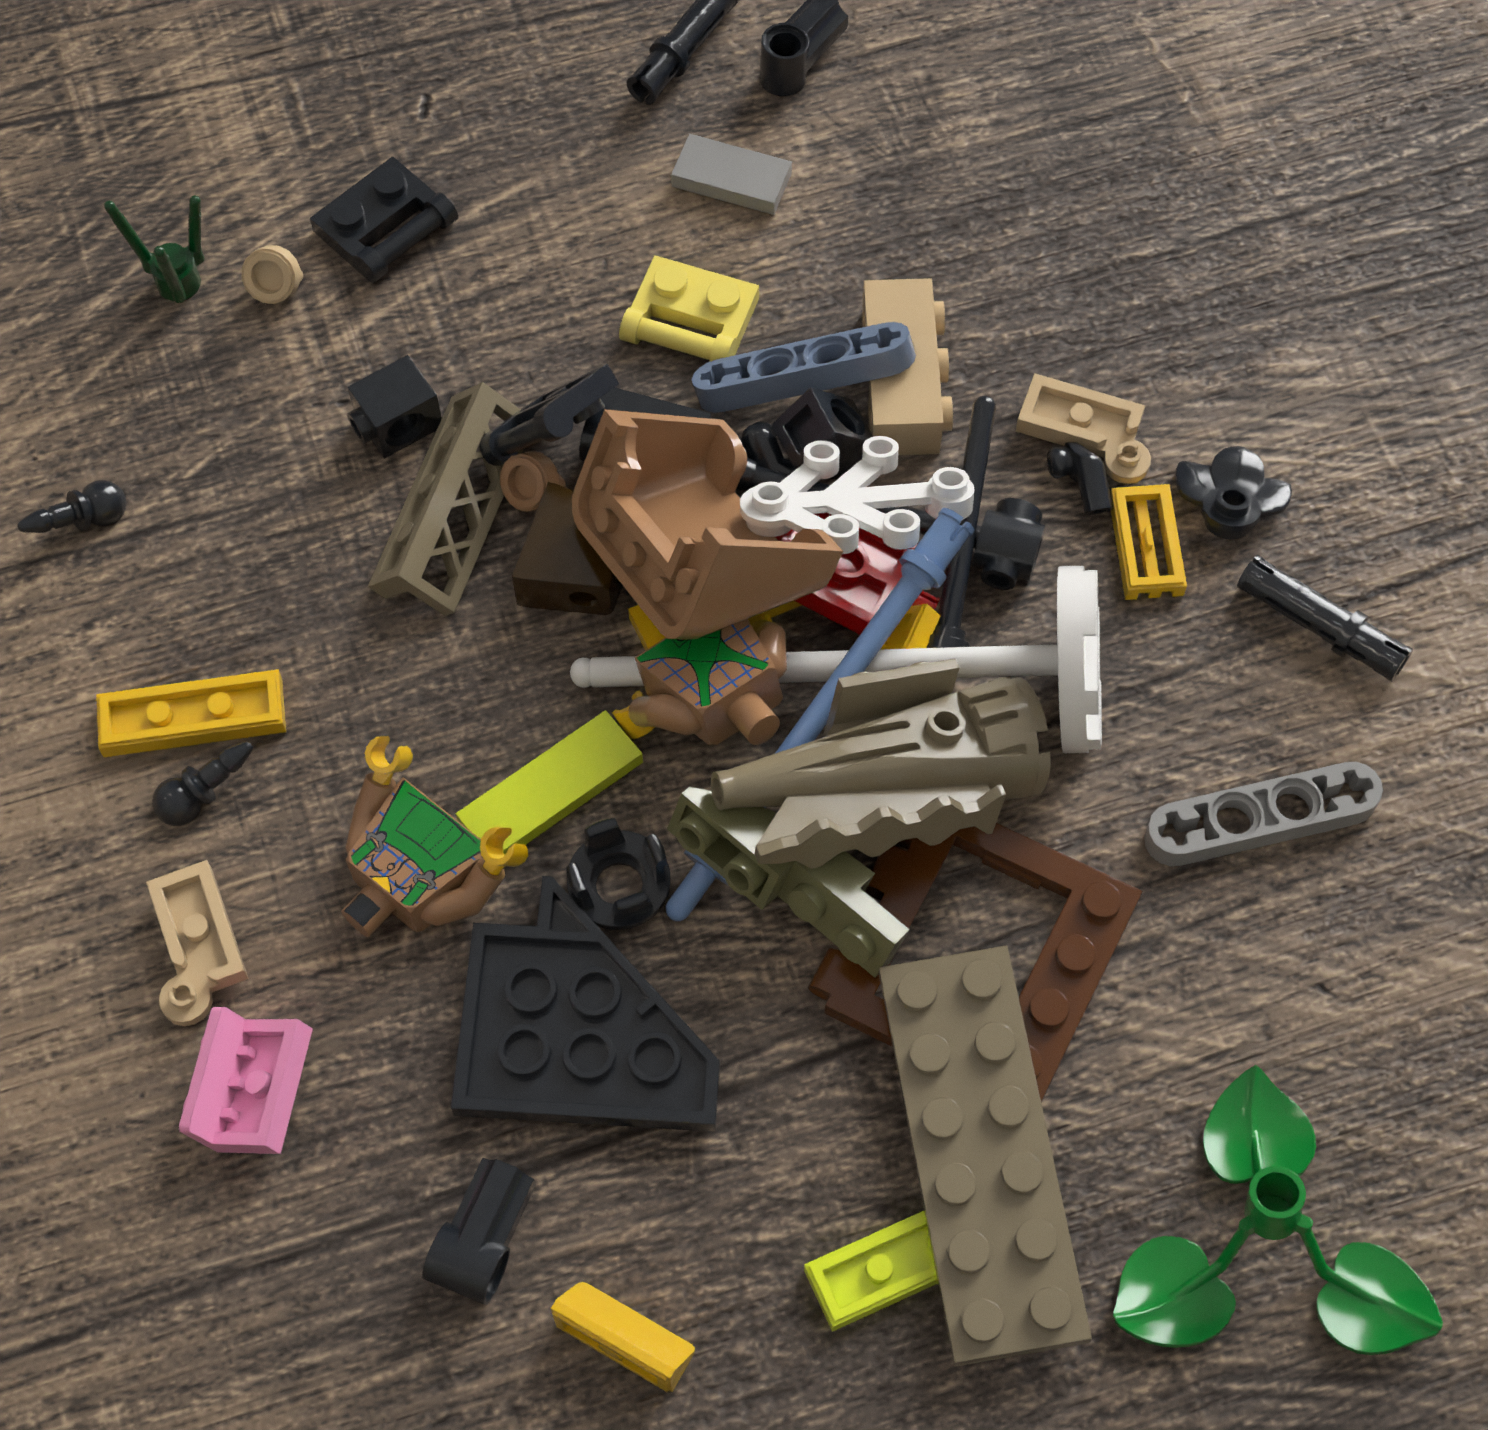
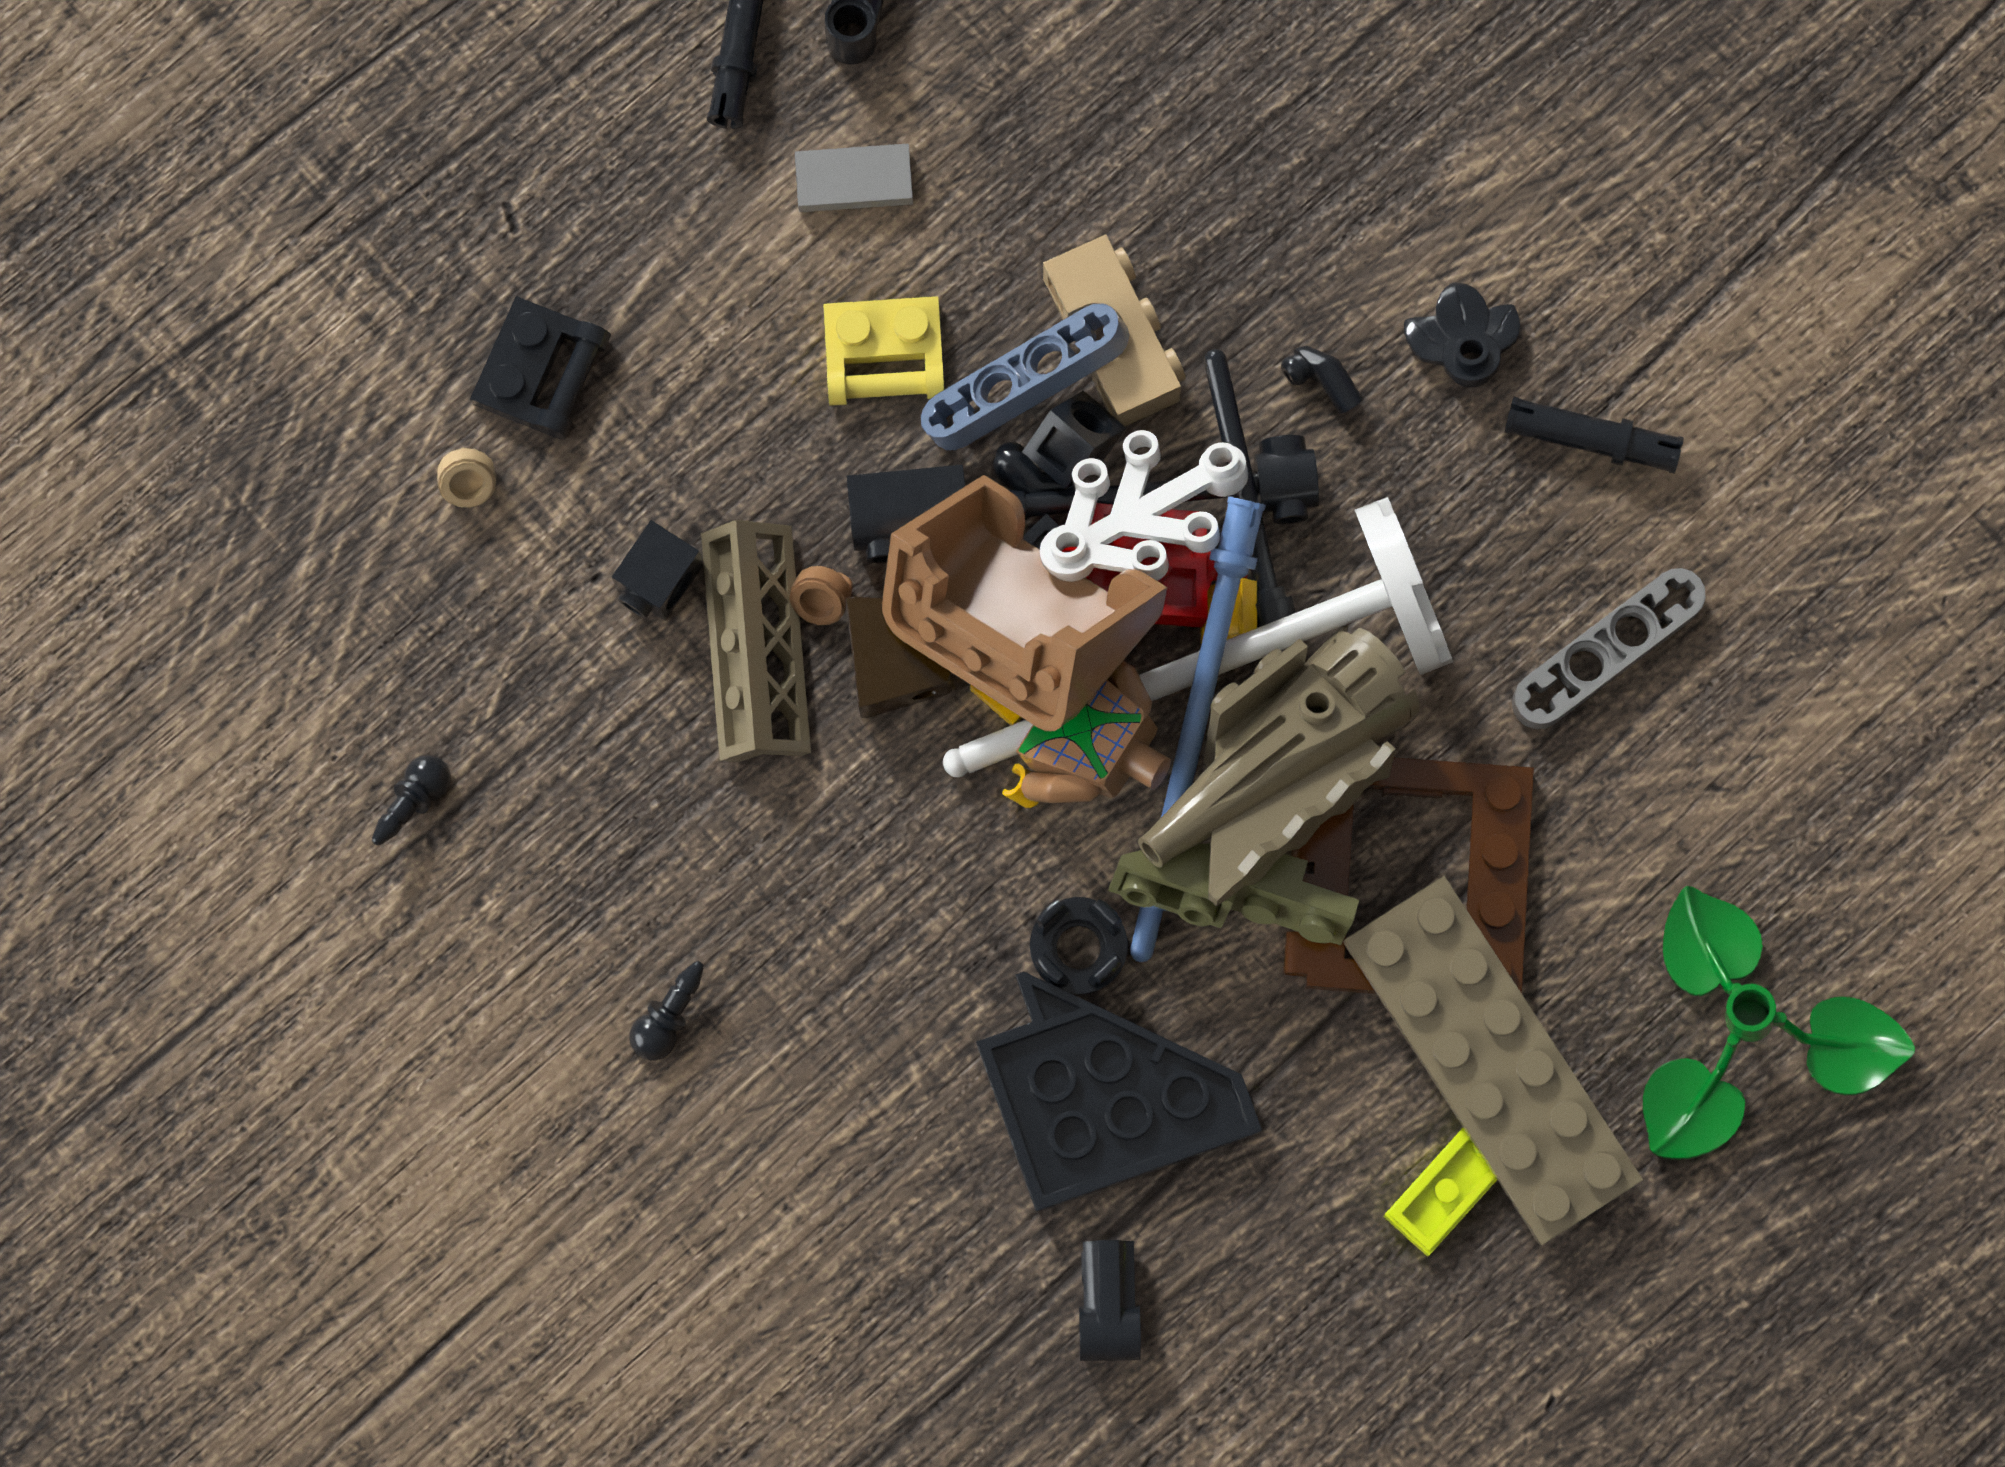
camera: 20 degrees left, 15 degrees up
(170, 264) = (365, 507): dark green plant -> none
(190, 713) = (621, 949): yellow tile -> none
(197, 942) = (742, 1157): tan hinge -> none
(245, 1082) = (852, 1262): bright pink bracket -> none
(415, 854) = (897, 1002): torso -> none
(549, 416) = (815, 516): black plate -> none
(554, 782) = (978, 885): neon yellow tile -> none
(623, 1335) = (1263, 1333): yellow slope -> none
(1091, 418) = (1307, 317): tan hinge -> none
(1152, 582) = (1429, 460): yellow tile -> none

